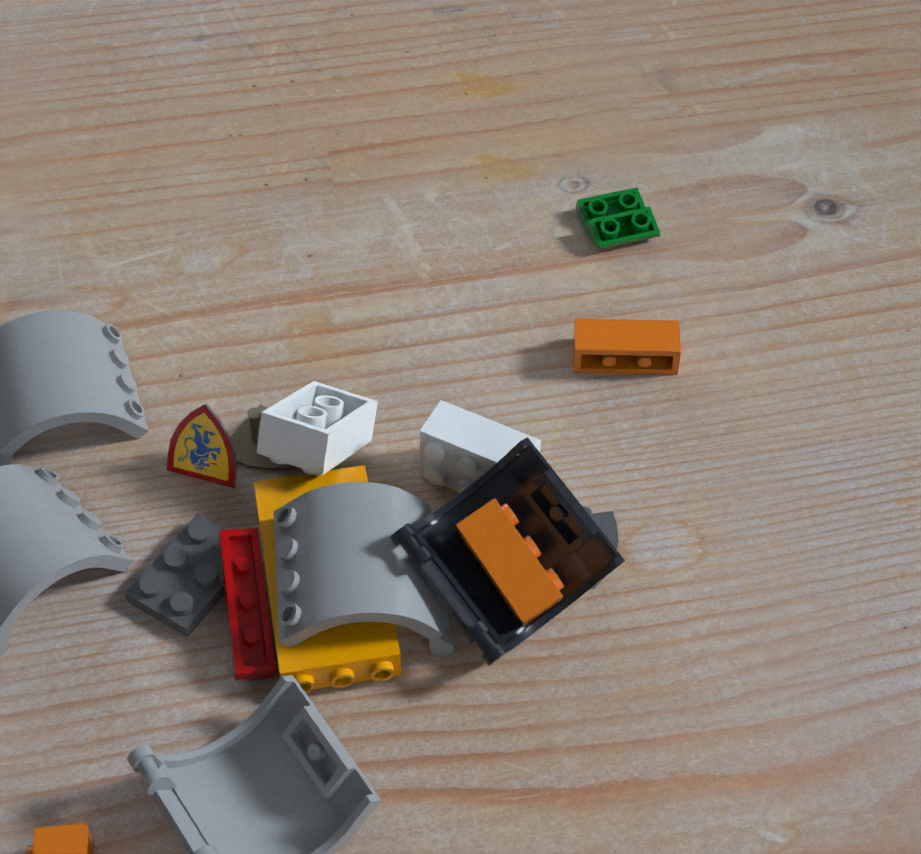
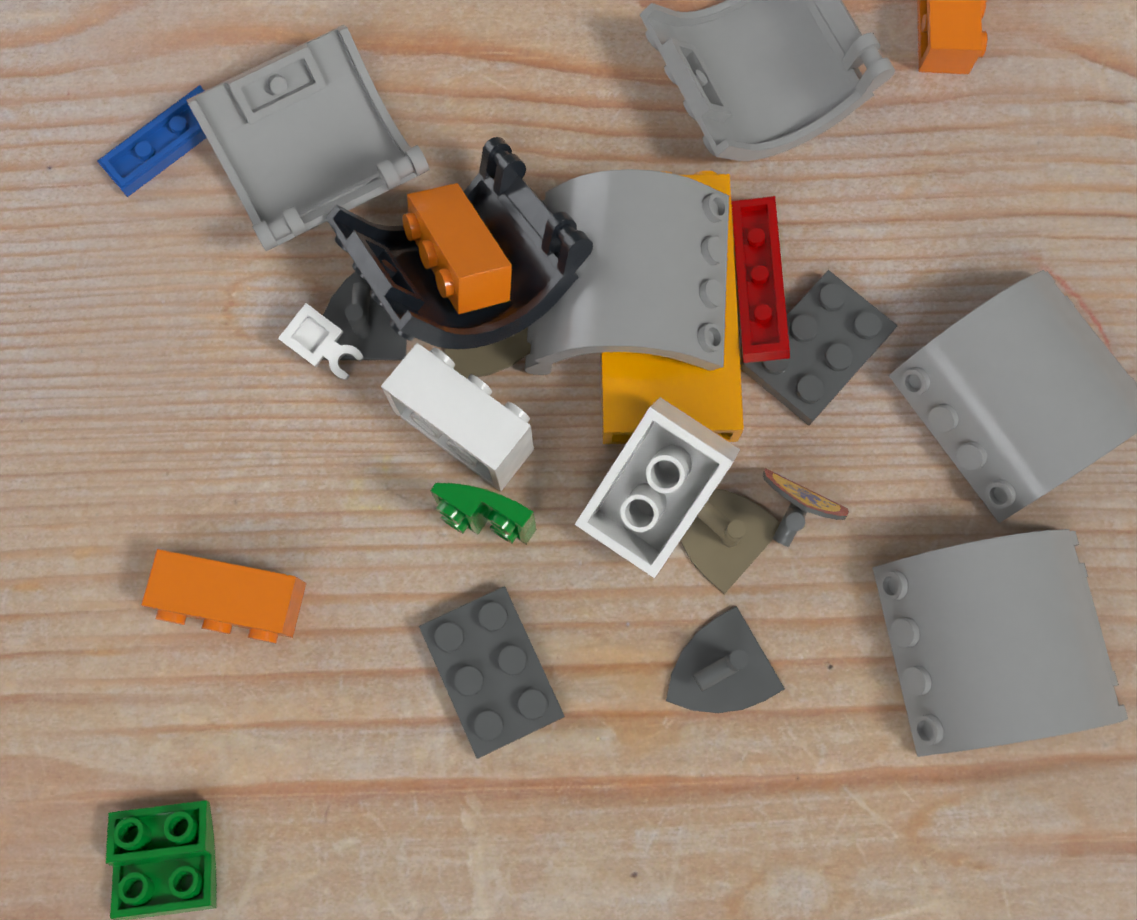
camera: 170 degrees left, 25 degrees up
(258, 363) = (723, 669): none -> dark grey shield
(425, 337) = (491, 672): none -> dark grey plate
(428, 390) = (472, 507): none -> green slope
(614, 511) = (316, 338): none -> white plate
(658, 646) = (305, 137): none -> light grey hinge
(809, 660) = (154, 146): none -> blue tile

